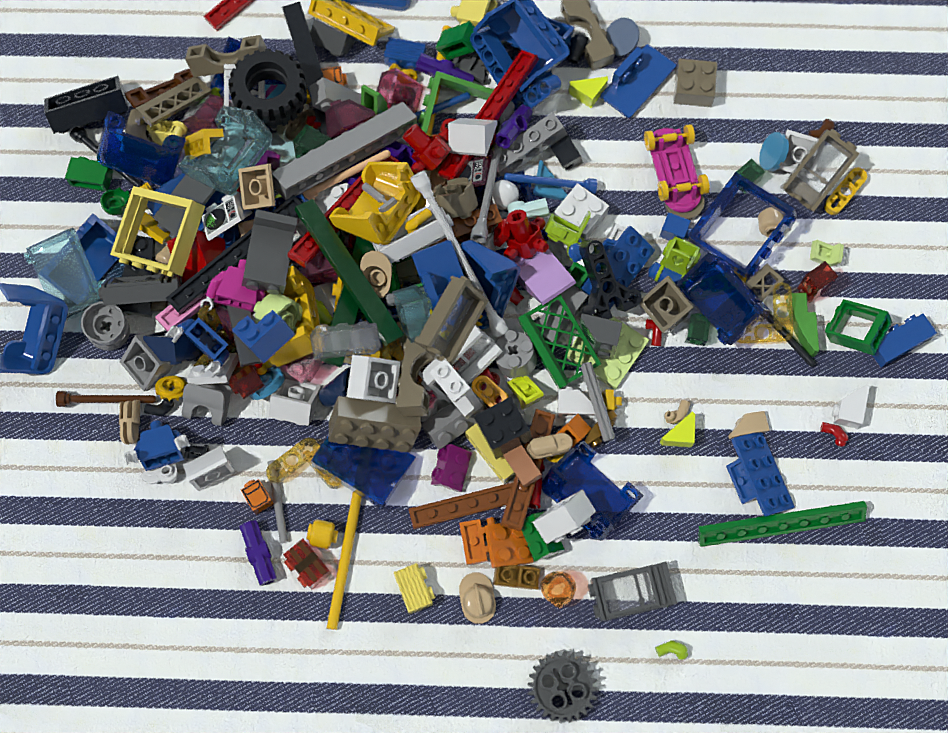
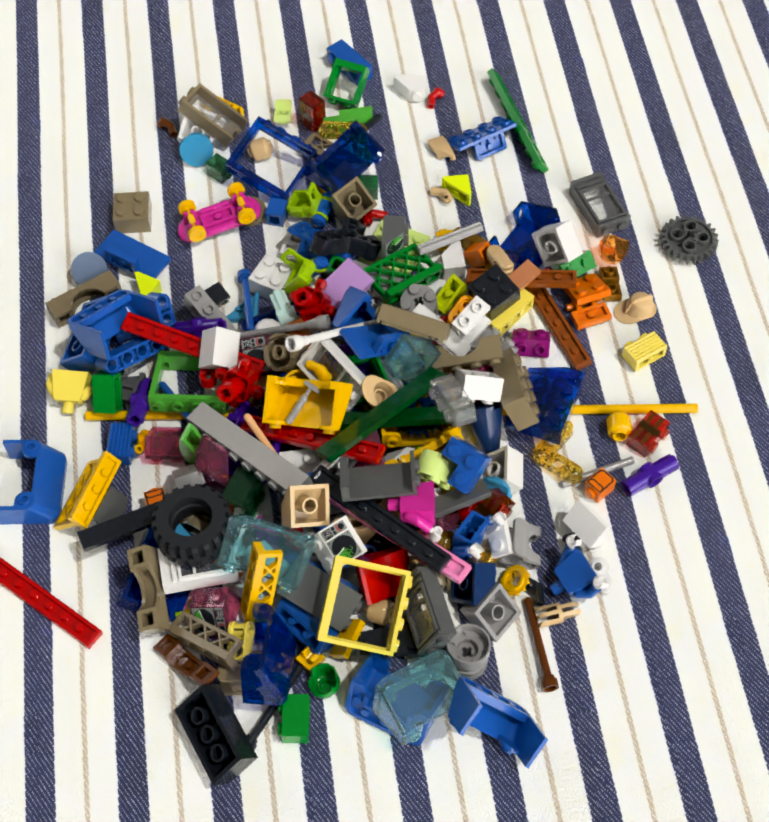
camera: 100 degrees left, 15 degrees down
(674, 647) = (633, 177): lime arm -> none

